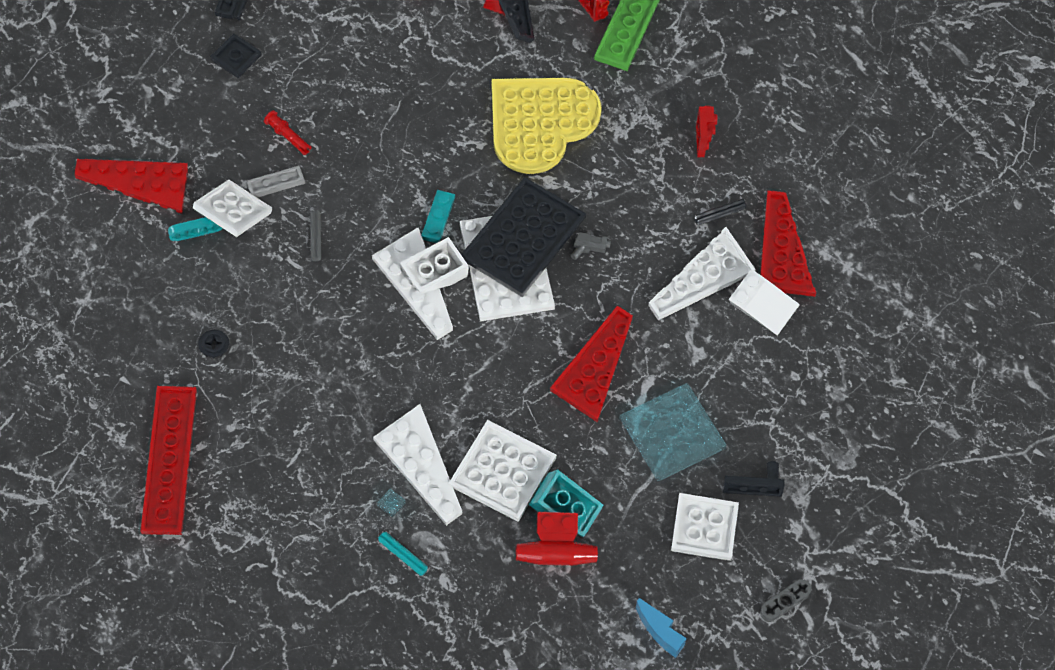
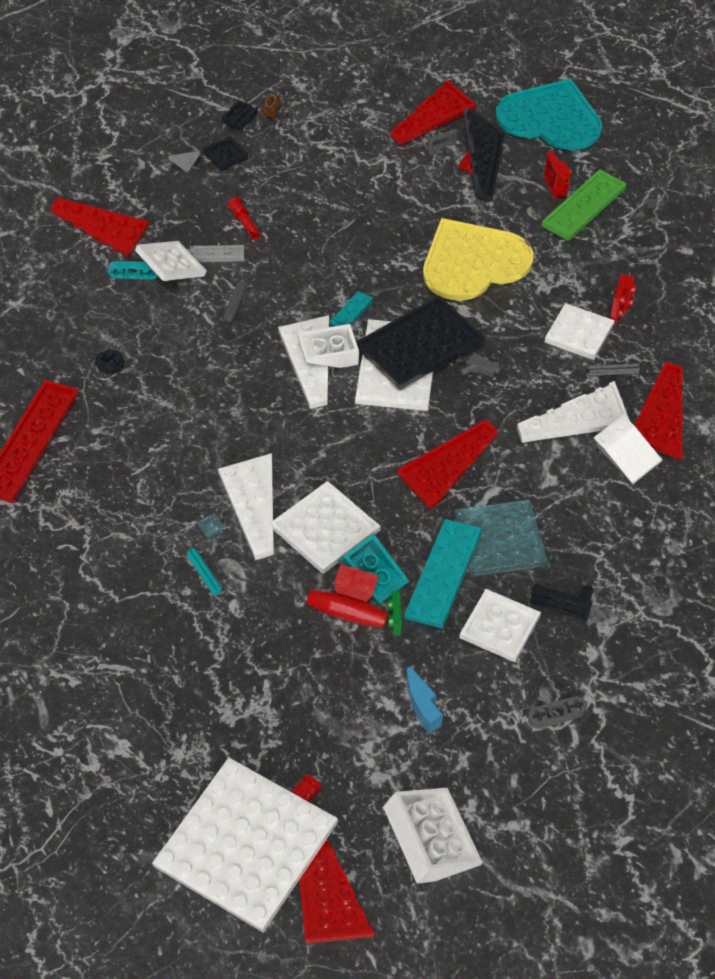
camera: 20 degrees right, 10 degrees down
(195, 75) = (184, 160): none -> slope
(606, 551) = (395, 619): none -> green plate
(634, 488) = (443, 574): none -> teal plate
(672, 176) = (579, 331): none -> white plate

